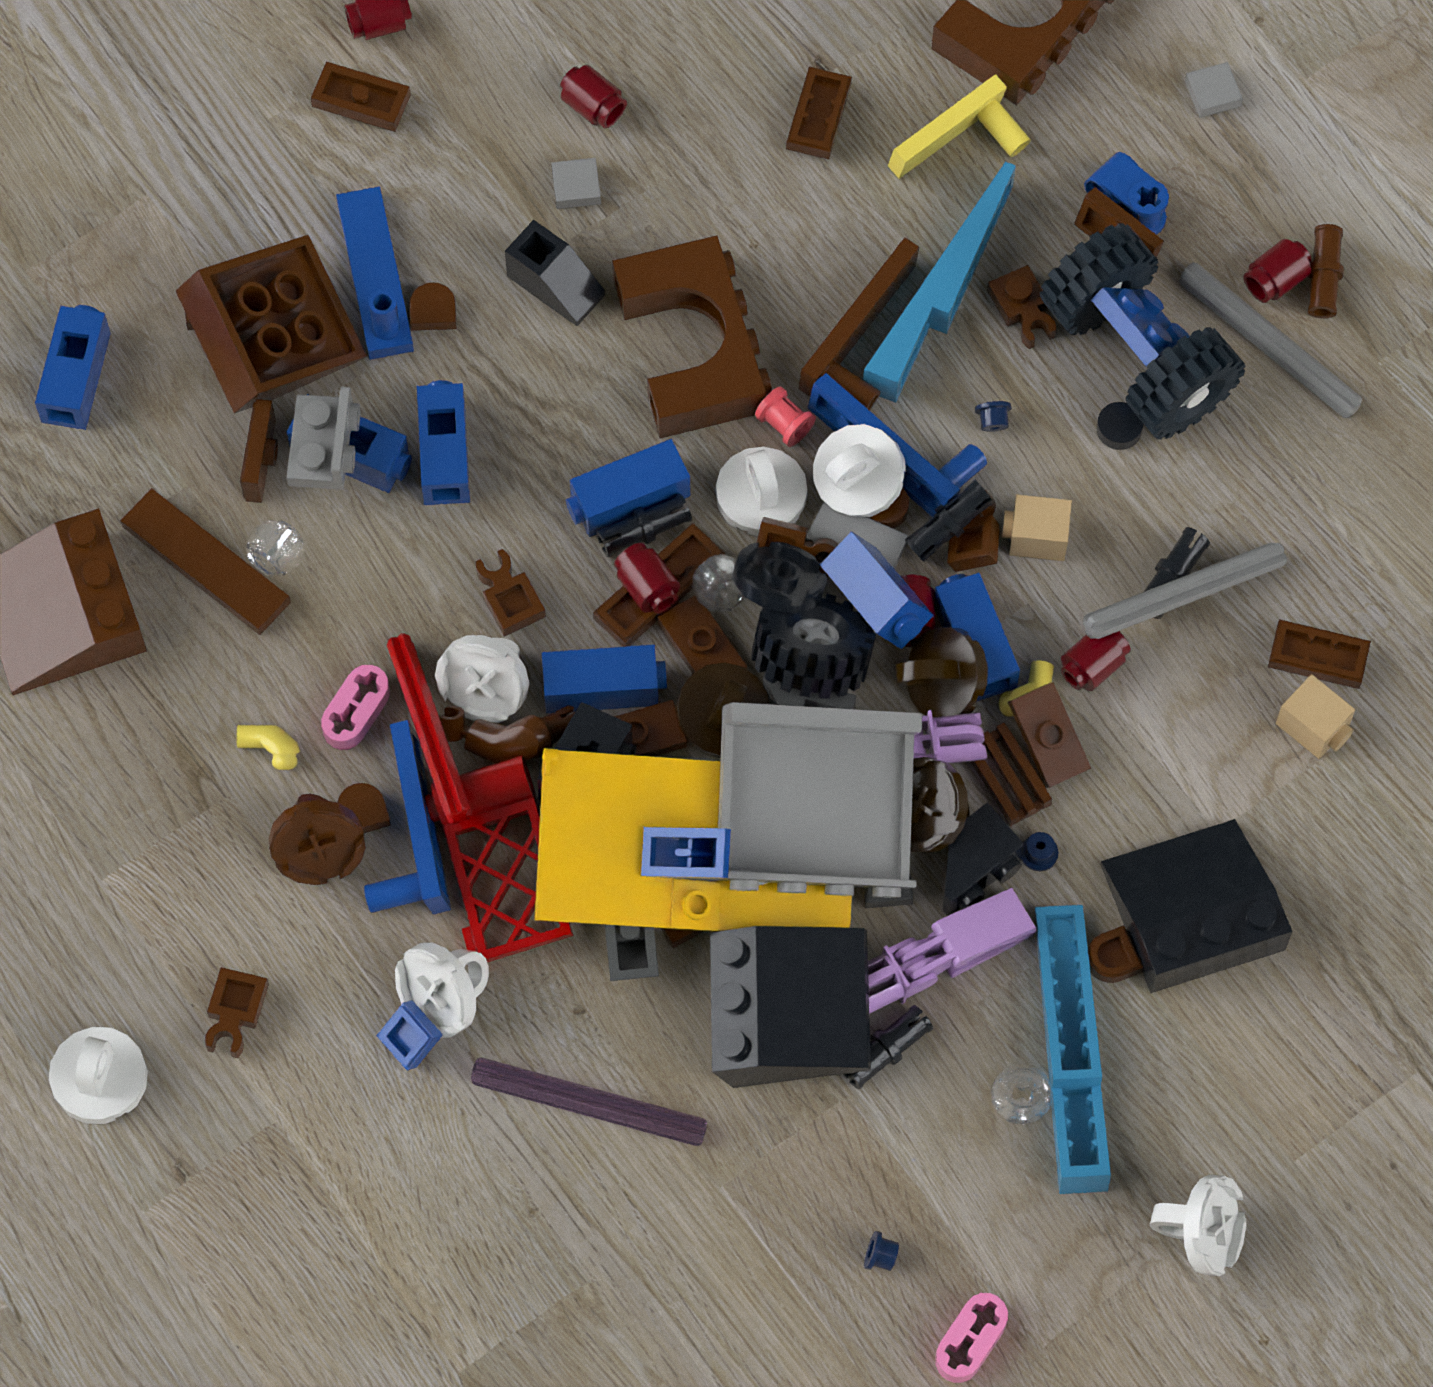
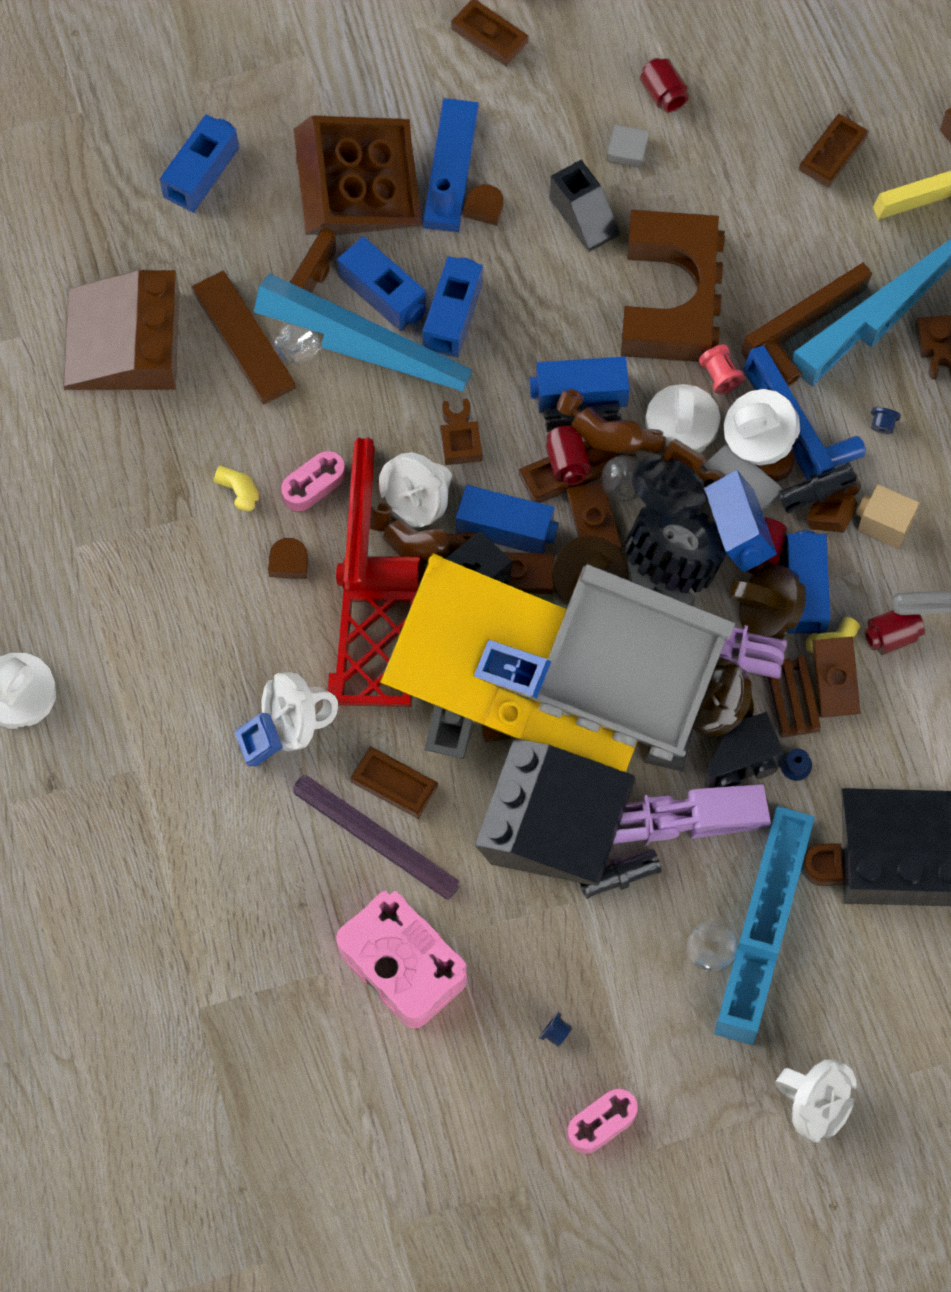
camera: 20 degrees right, 0 degrees up
(235, 1003) = (137, 671): reddish brown plate -> none
(316, 840) = (243, 569): reddish brown tile -> none
(321, 440) = (359, 273): light grey bracket -> none
(343, 516) = (355, 335): none -> dark azure slope
(429, 880) = (319, 627): blue piece -> none
(585, 1031) = (394, 782): none -> reddish brown tile
(686, 1213) = (418, 949): none -> bright pink axle
(695, 538) = (616, 436): none -> reddish brown arm

